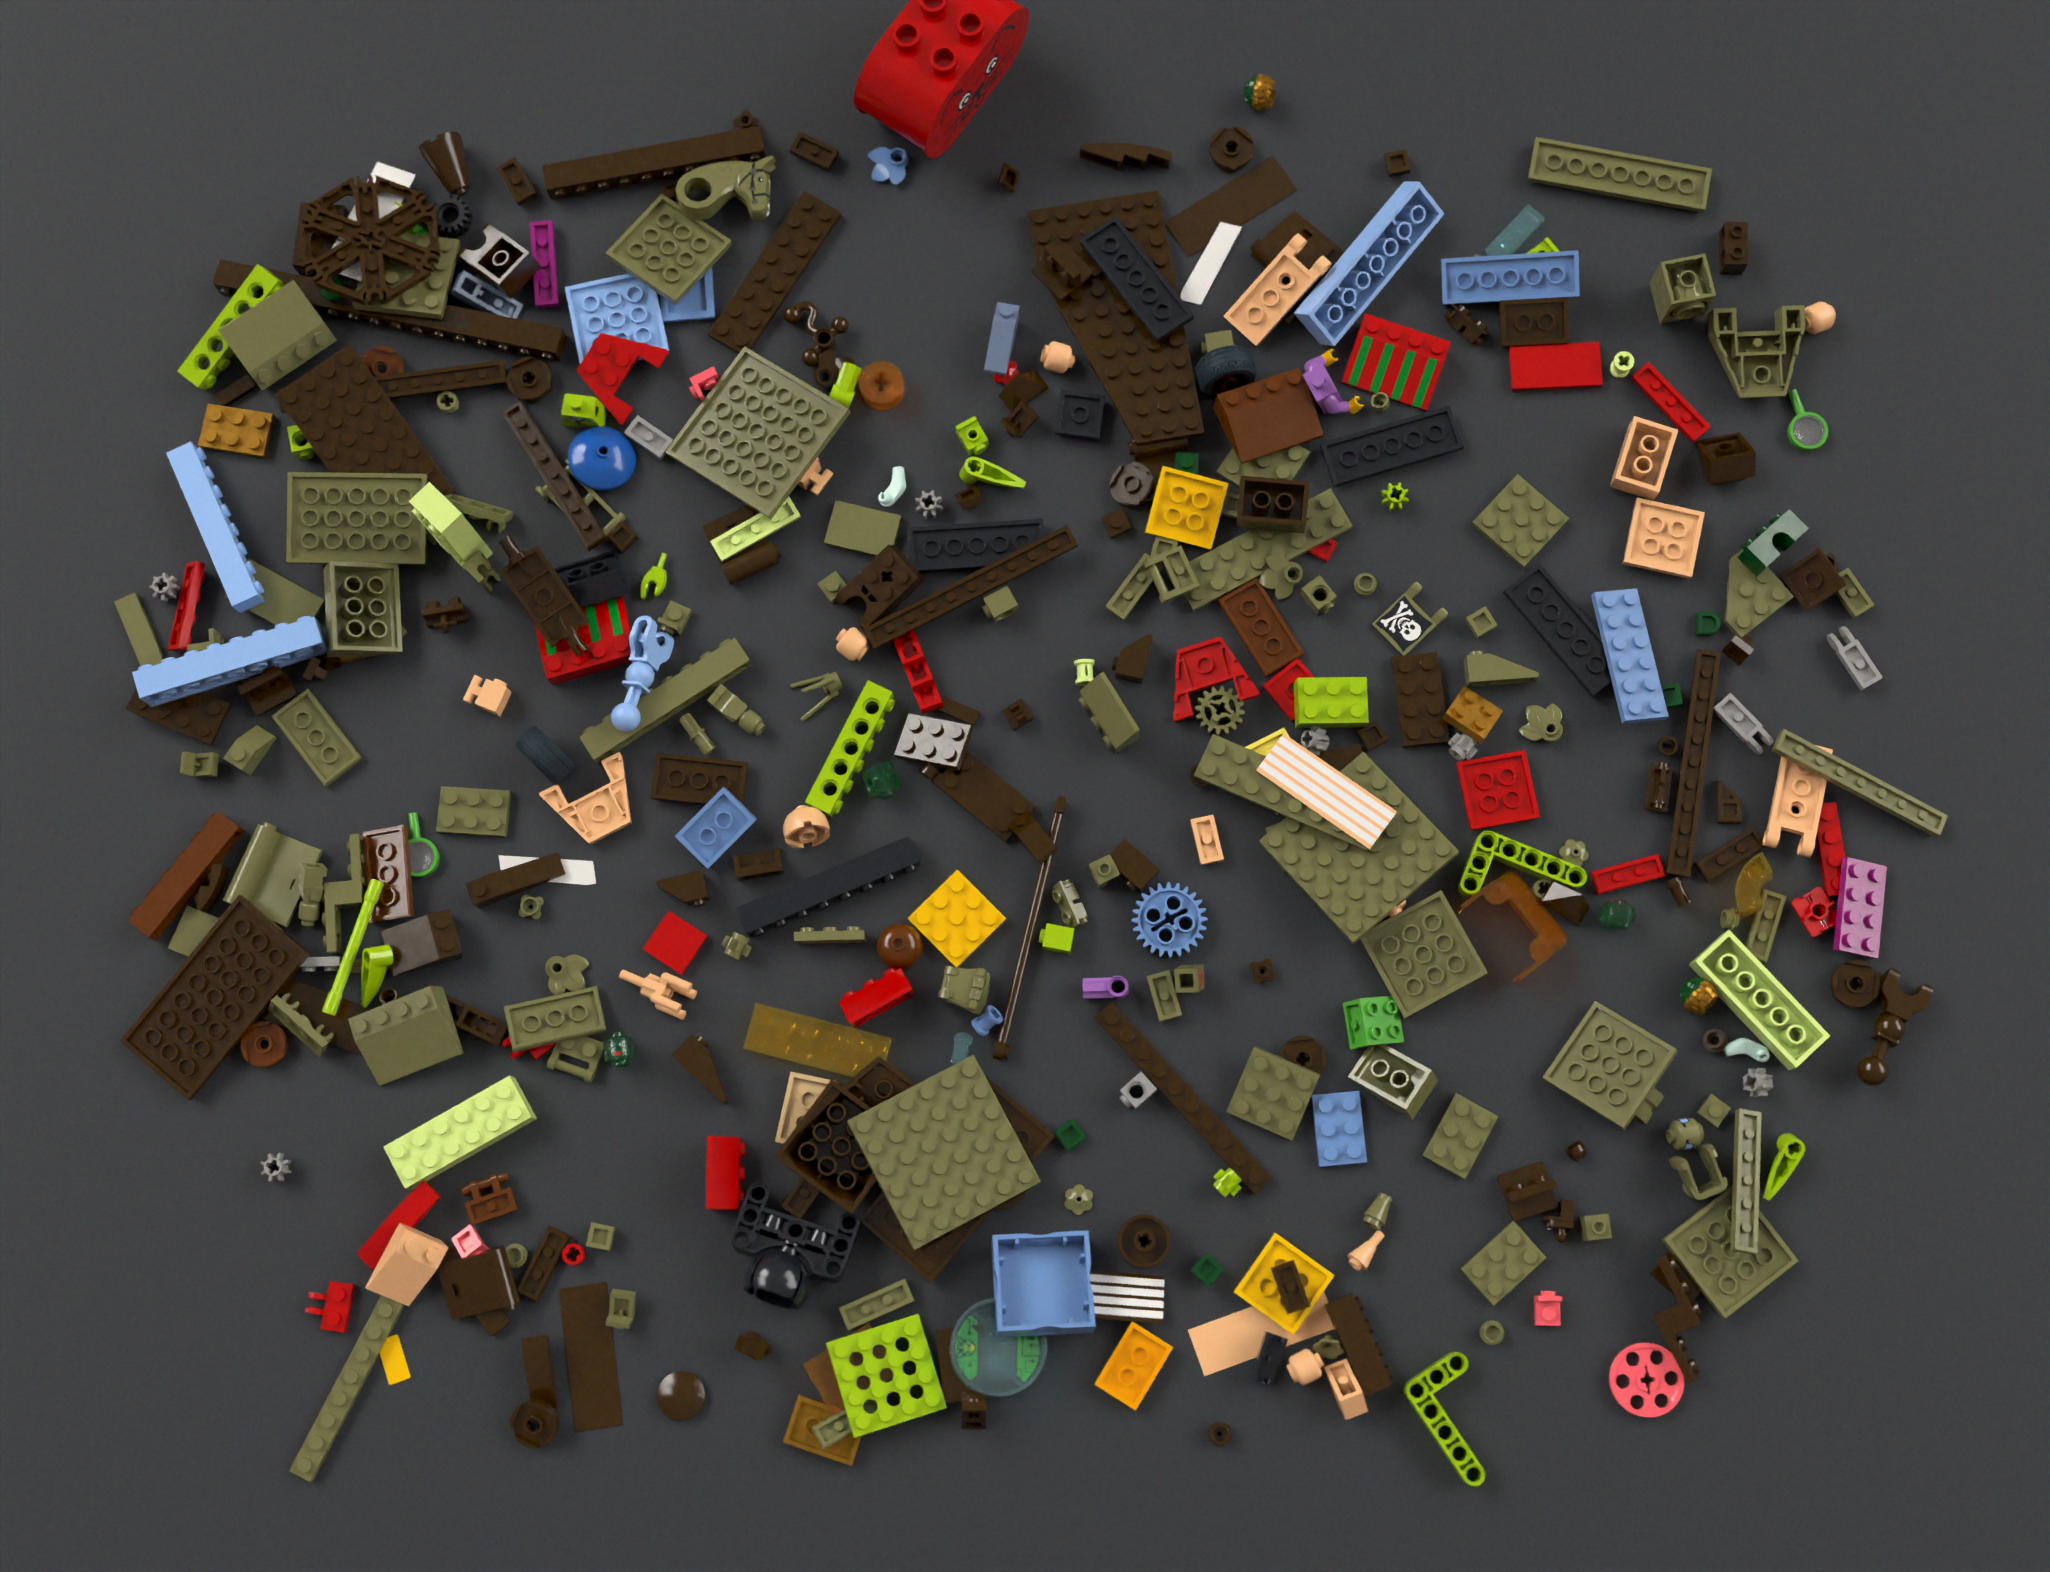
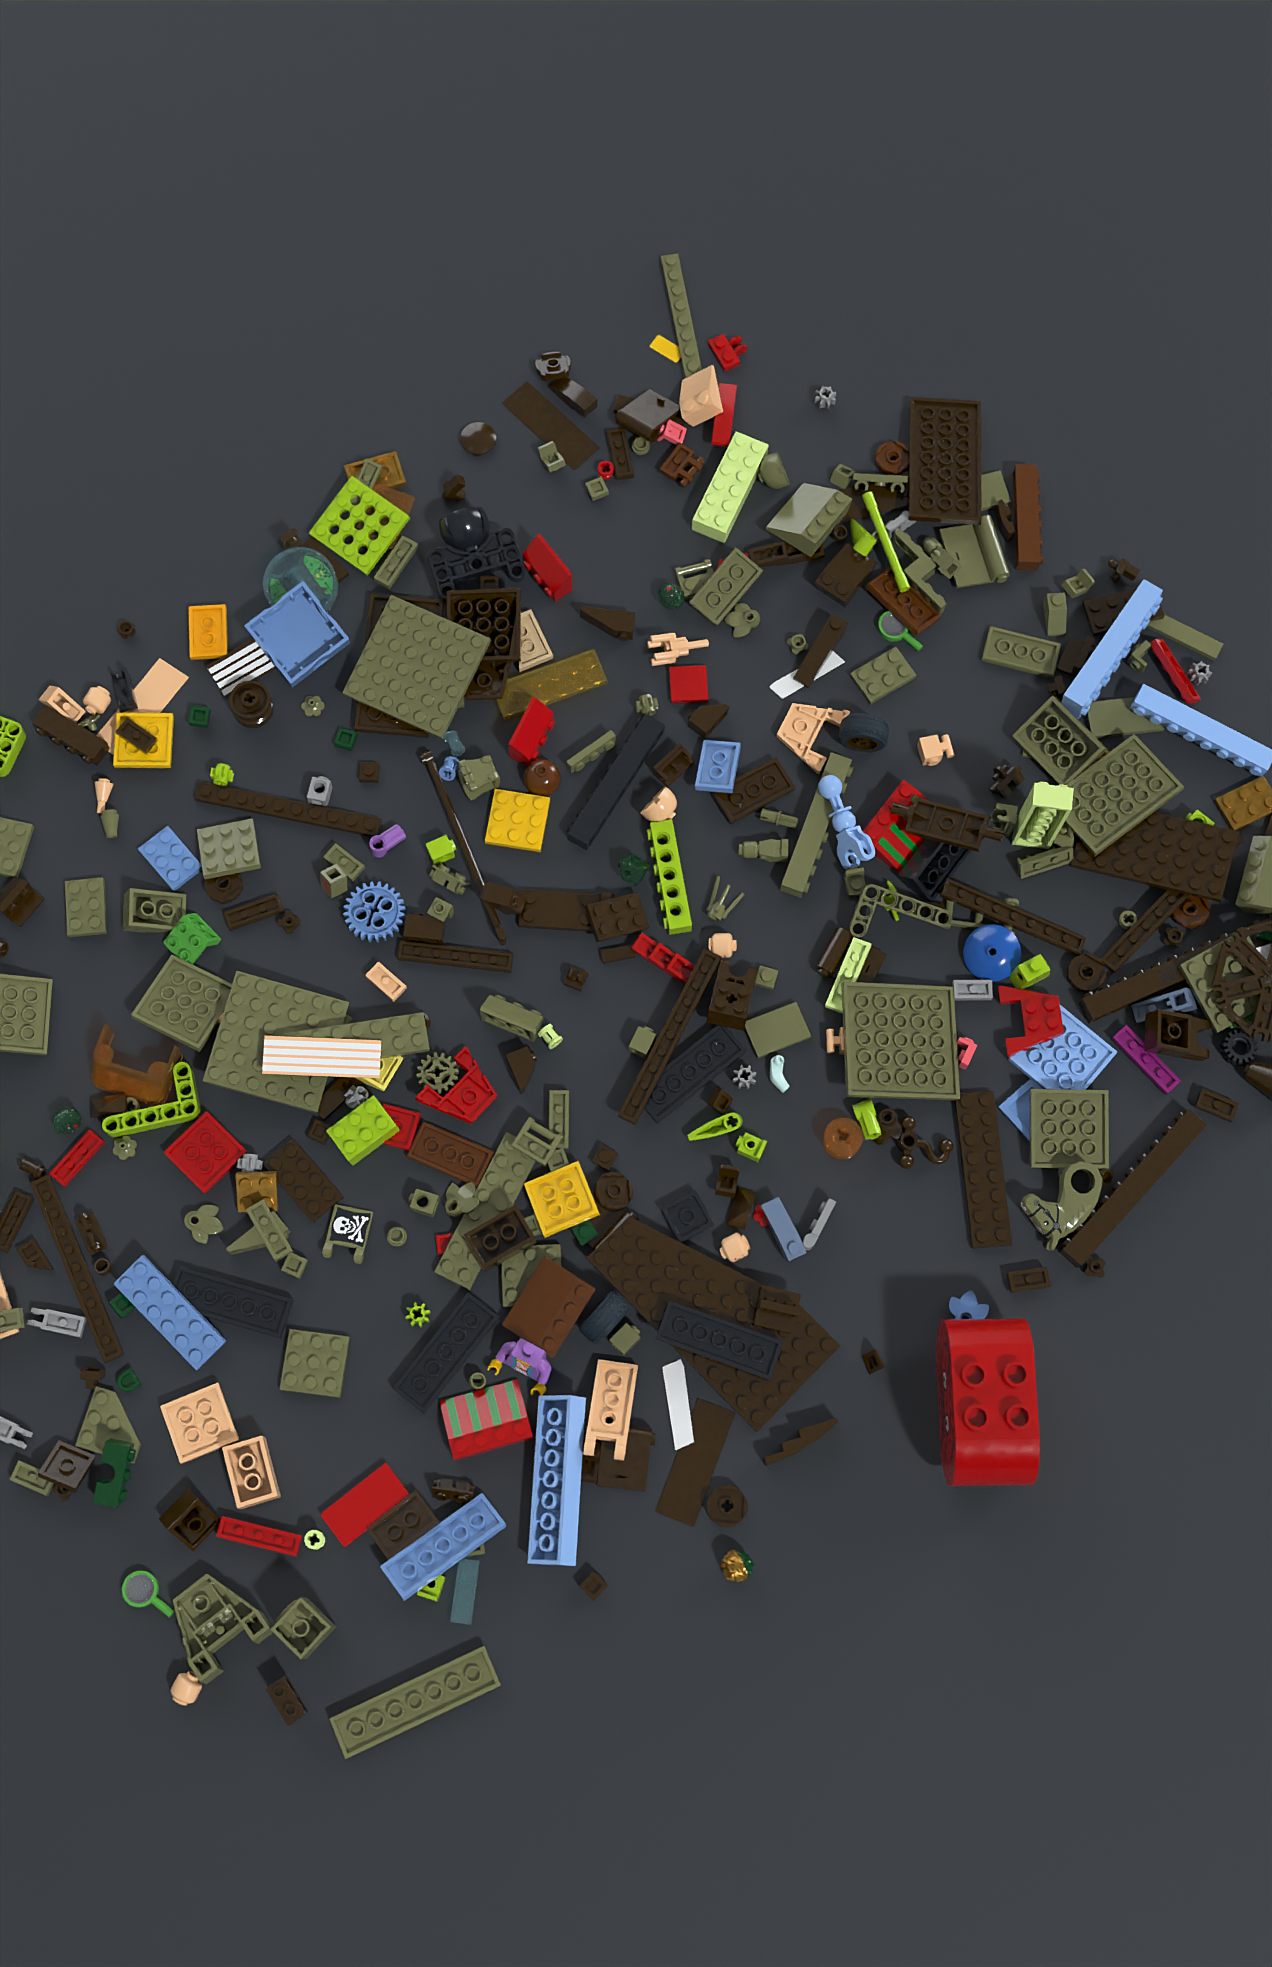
camera: 135 degrees right, 5 degrees down
(141, 750) = (1123, 568): none -> dark brown piece
(332, 1064) = (842, 476): none -> olive slope
(402, 1115) = (773, 472): none -> olive cylinder
(417, 350) = (1178, 933): none -> dark brown plate
(657, 560) = (896, 906): none -> olive beam
(965, 324) = (817, 1225): none -> light grey hinge
(1071, 1079) = (369, 772): none -> dark brown plate
(1119, 819) = (455, 956): none -> dark brown tile
(1291, 1009) = (253, 912): none -> dark brown tile
(1486, 661) = (269, 1230): none -> olive plate

